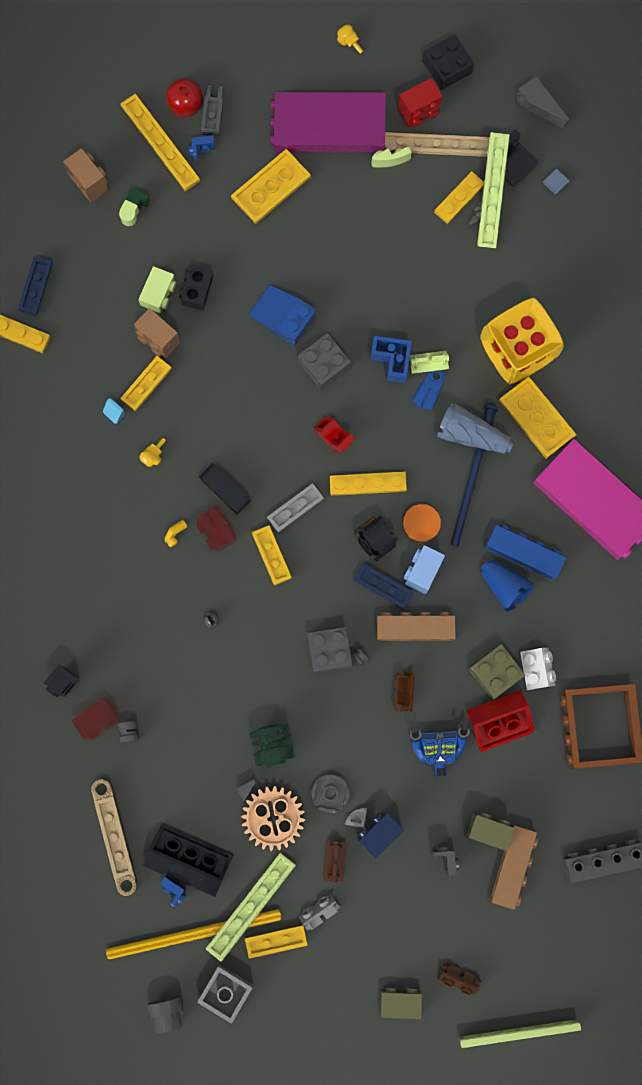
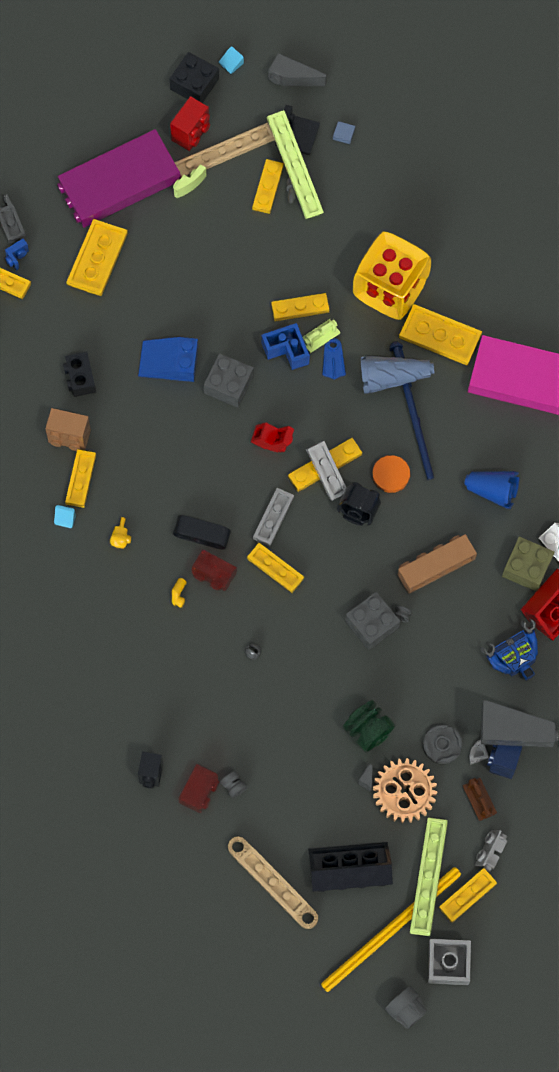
camera: 25 degrees left, 10 degrees down
(157, 290) = (45, 393): yellowish green brick -> none
(171, 886) = (347, 897): blue bracket -> none
(348, 37) = (95, 100): yellow piece -> none
(364, 490) = (326, 470): none -> light grey plate
(383, 586) = (388, 543): dark blue plate -> none
(393, 821) = (514, 728): none -> dark grey slope
(404, 697) = (458, 622): reddish brown hinge -> none
(423, 573) = (416, 509): light blue brick -> none
(426, 325) = (300, 307): none -> yellow plate
(491, 61) = (231, 60): none -> medium azure slope
(525, 552) = (494, 451): blue brick -> none

